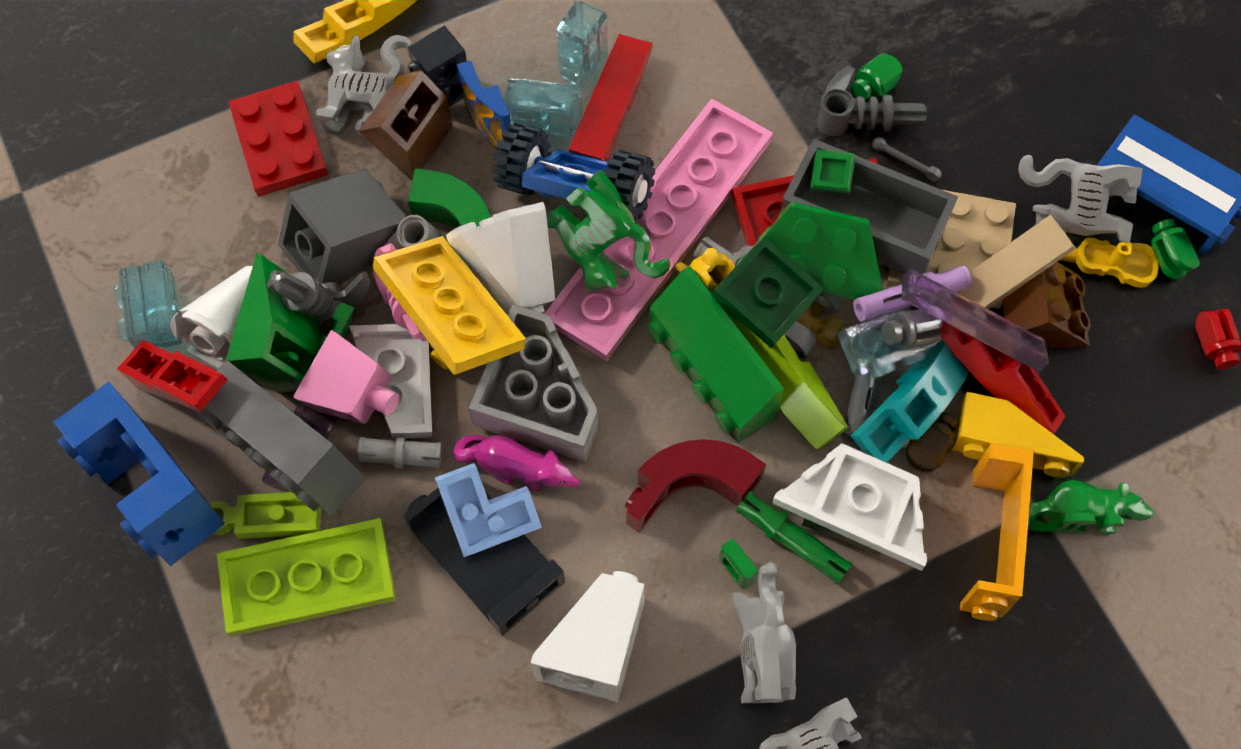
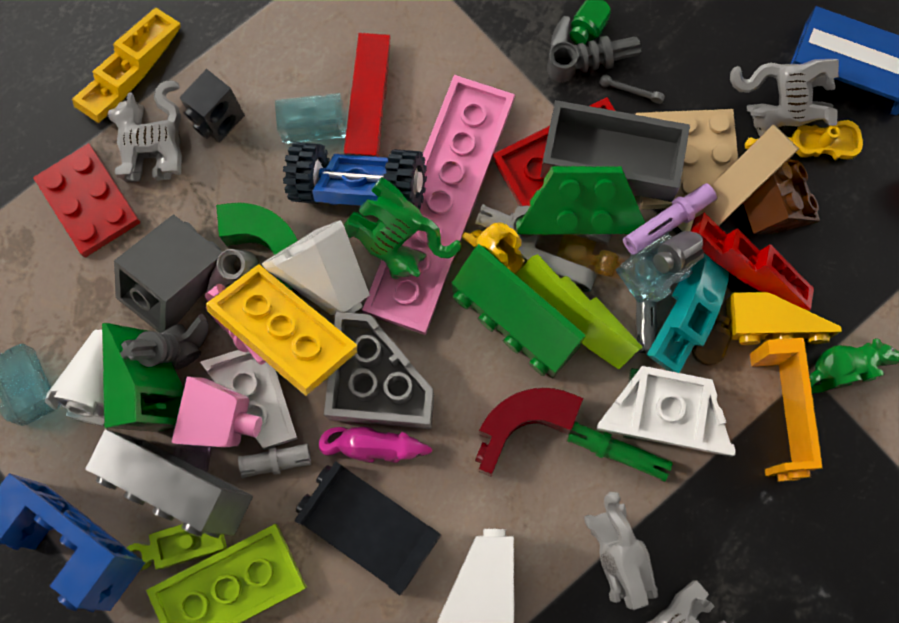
camera: 10 degrees left, 10 degrees up
(171, 376) = (62, 452): red slope -> none
(342, 320) = (193, 365): green tile -> none
(409, 122) = (198, 163): reddish brown slope -> none
(481, 521) = (364, 506): light blue plate -> none
(483, 105) = (262, 134): blue slope -> none
(582, 44) = (330, 52): clear light blue brick -> none
(738, 564) = (580, 487): green tile -> none
(767, 291) = (550, 251): dark green plate -> none
(833, 172) = (579, 127): green tile -> none
(974, 320) = (727, 231): tile -> none
(1173, 249) = (872, 120): green arm -> none

